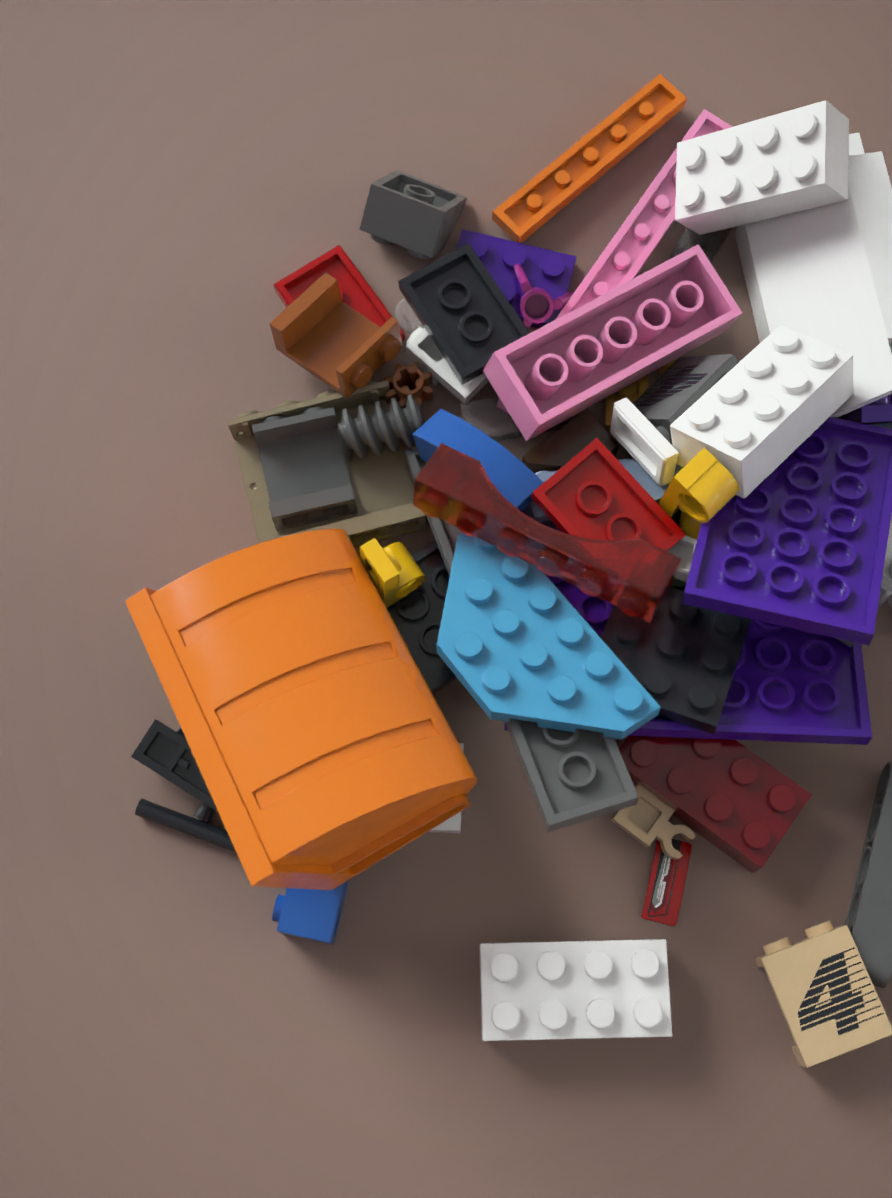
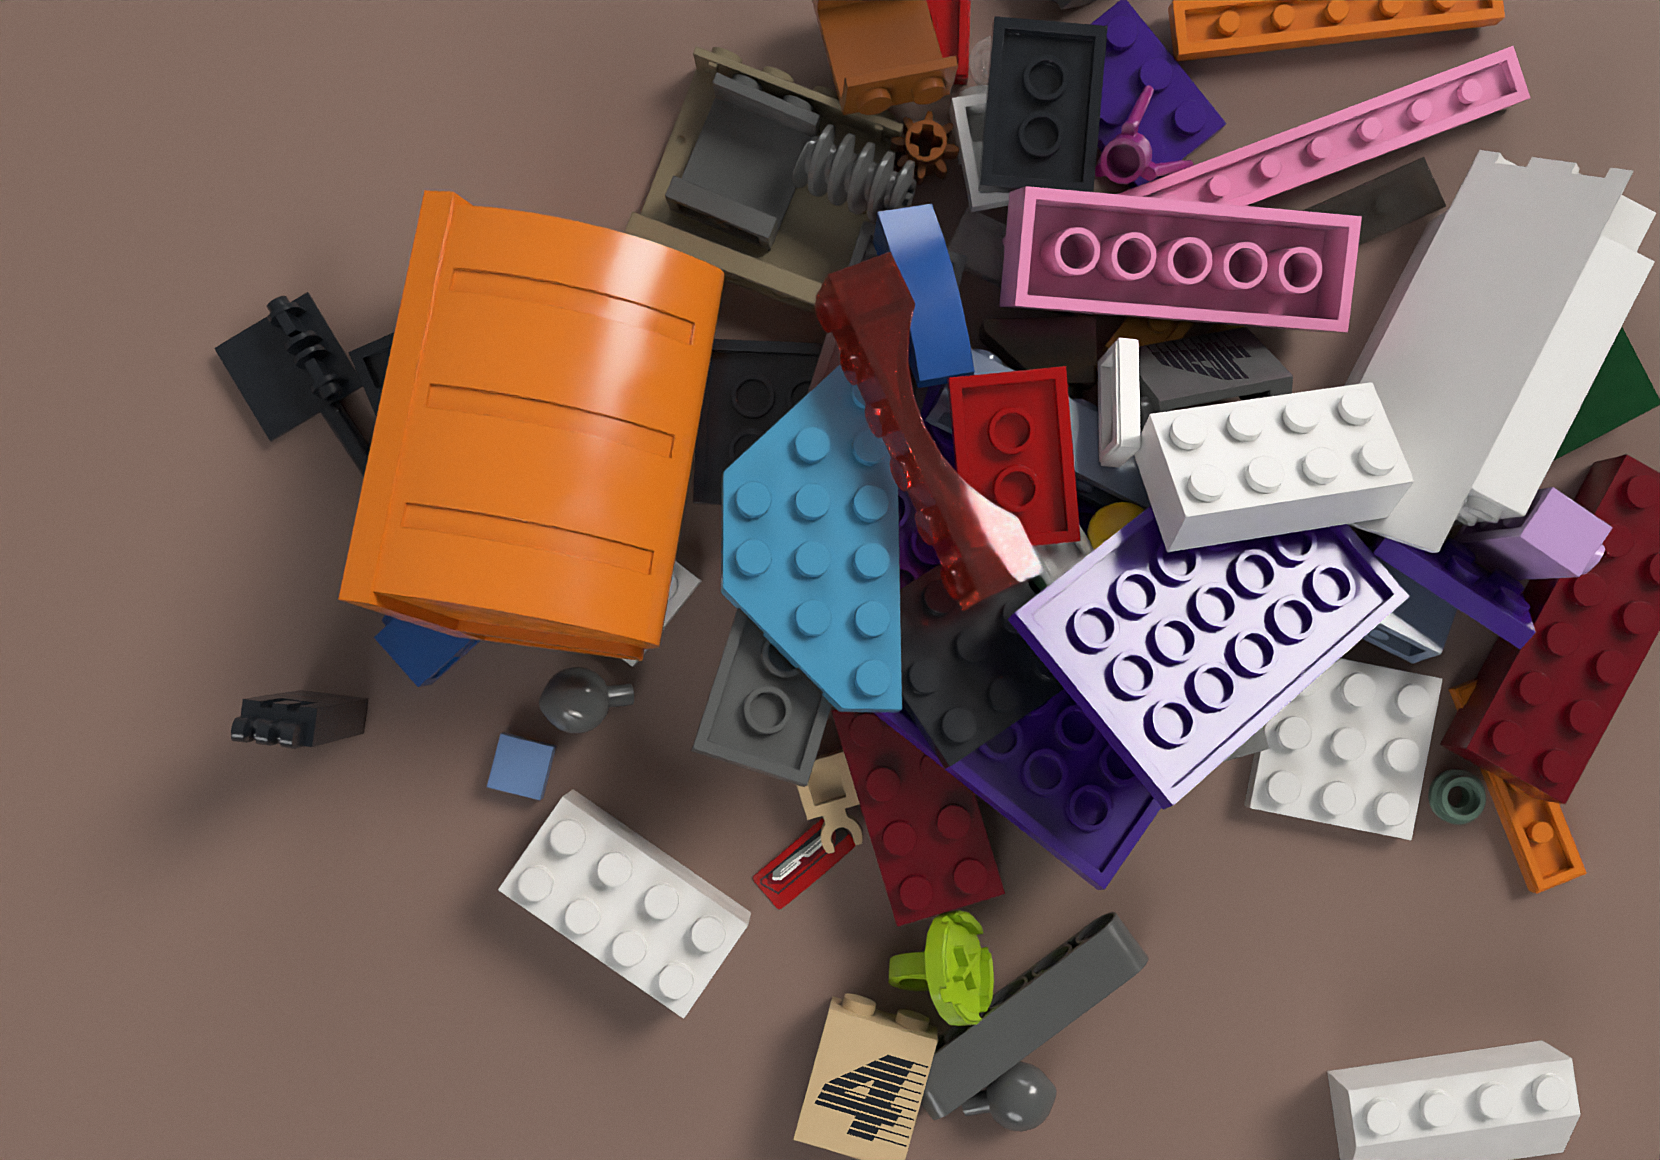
camera: 30 degrees right, 15 degrees up
(93, 798) = (289, 365): none -> black hinge
(281, 1006) = (299, 719): none -> black hinge
(391, 570) = (749, 348): yellow plate -> none
(434, 953) = (521, 766): none -> medium blue tile
(443, 876) = (580, 699): none -> dark grey piece
(700, 488) = (1127, 510): yellow plate -> none
(763, 169) = (1507, 180): white brick -> none
(813, 876) = (950, 968): none -> lime tile

